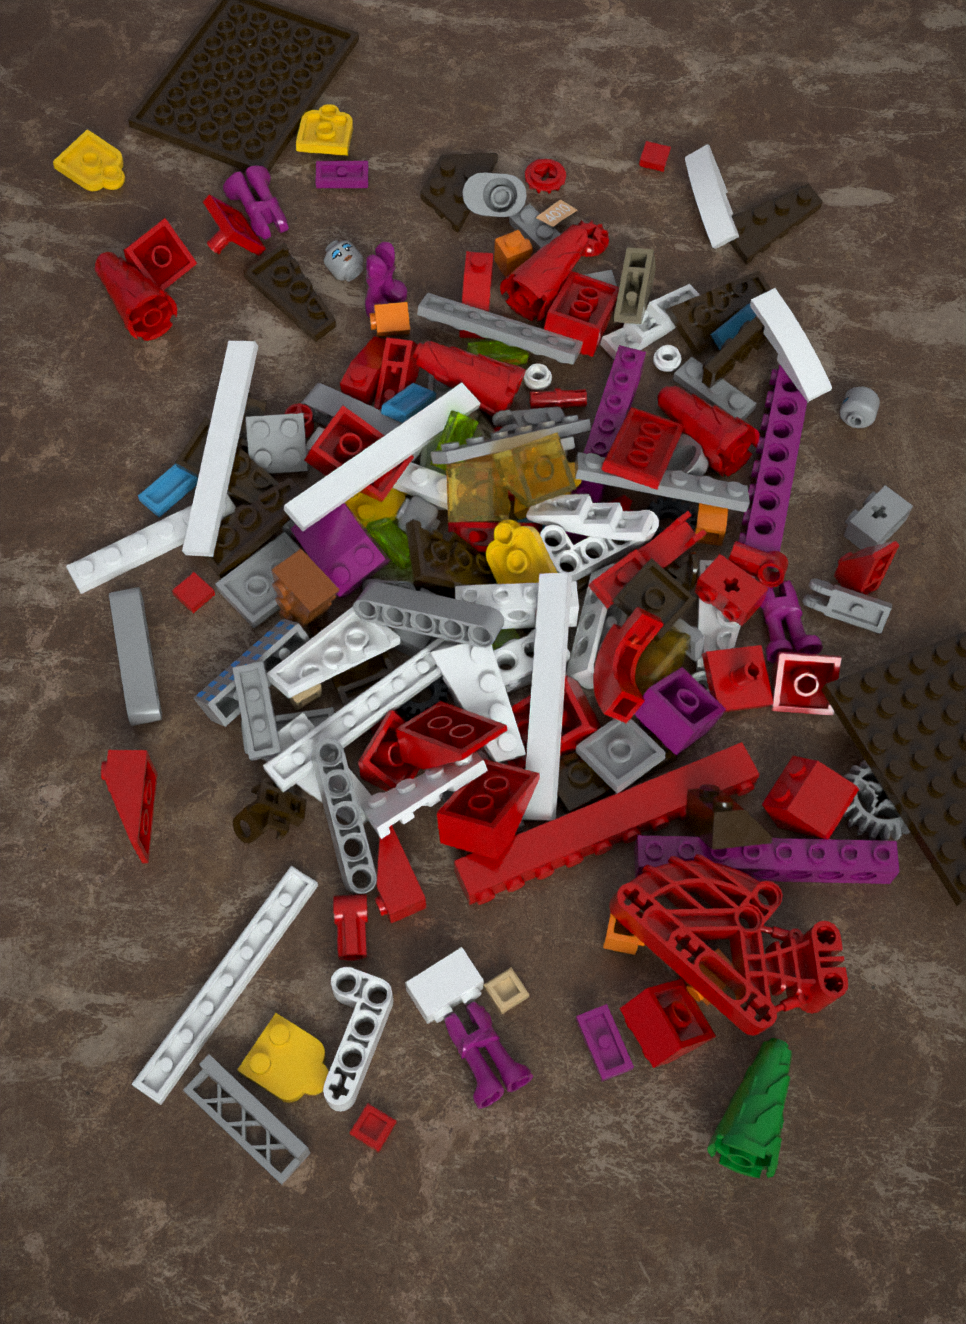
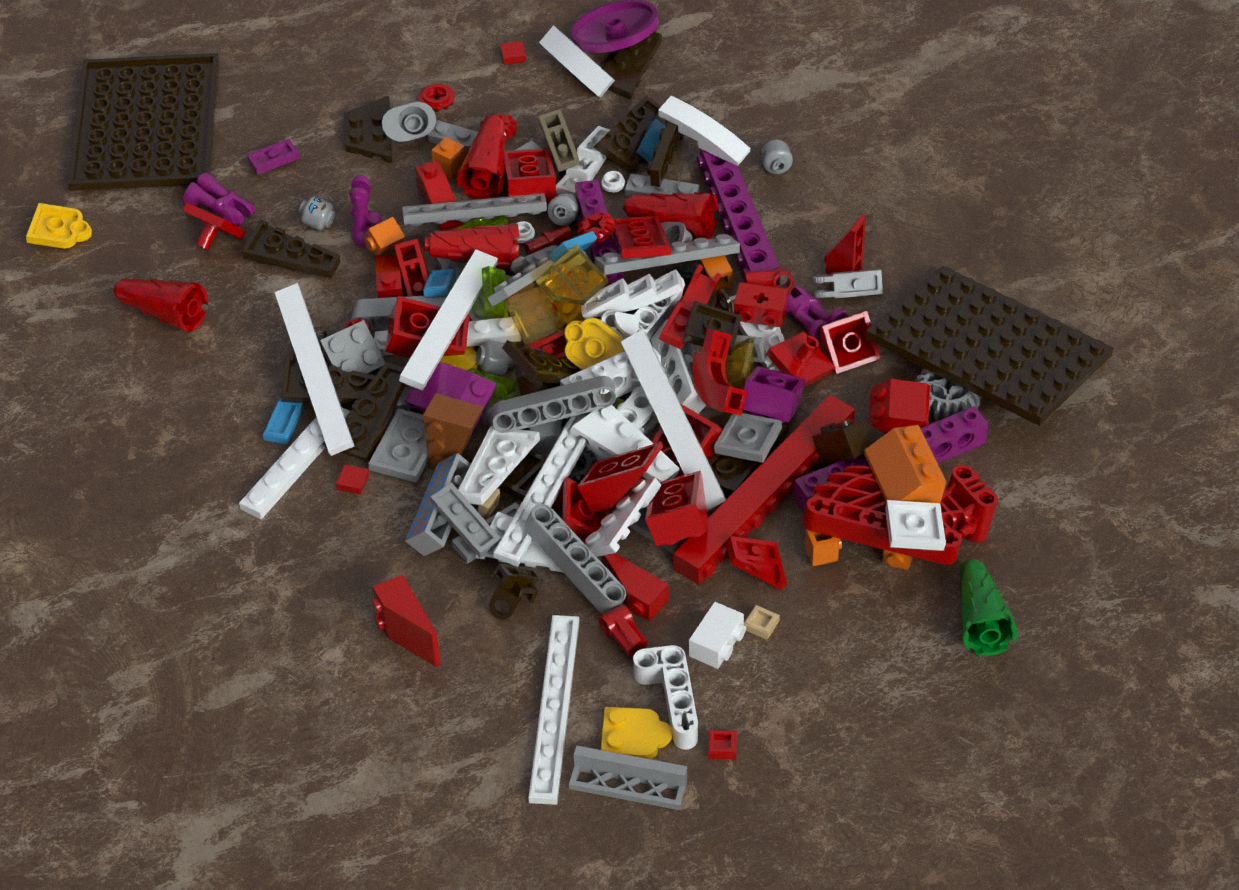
camera: 25 degrees left, 15 degrees down
(135, 656) = (338, 536): light grey beam -> none
(160, 255) = (165, 262): red slope -> none
(325, 131) = (238, 132): yellow plate -> none
(488, 1086) = (757, 653): magenta piece -> none
(543, 912) = (758, 559): none -> red wing
(556, 213) = (463, 118): light nougat sticker -> none
(564, 428) = (582, 242): none -> dark azure tile
(564, 552) = (626, 323): none -> white tile
(592, 370) = (557, 206): none -> light grey head
(596, 422) = (605, 222): none -> red gear
(604, 1042) = (851, 619): magenta plate -> none
(666, 1022) = (886, 587): red slope -> none
(726, 982) = (915, 525): none -> white plate
(758, 899) = (906, 466): none -> orange slope
(775, 171) = (615, 26): none -> magenta dish
(878, 519) = (835, 220): light grey brick -> none

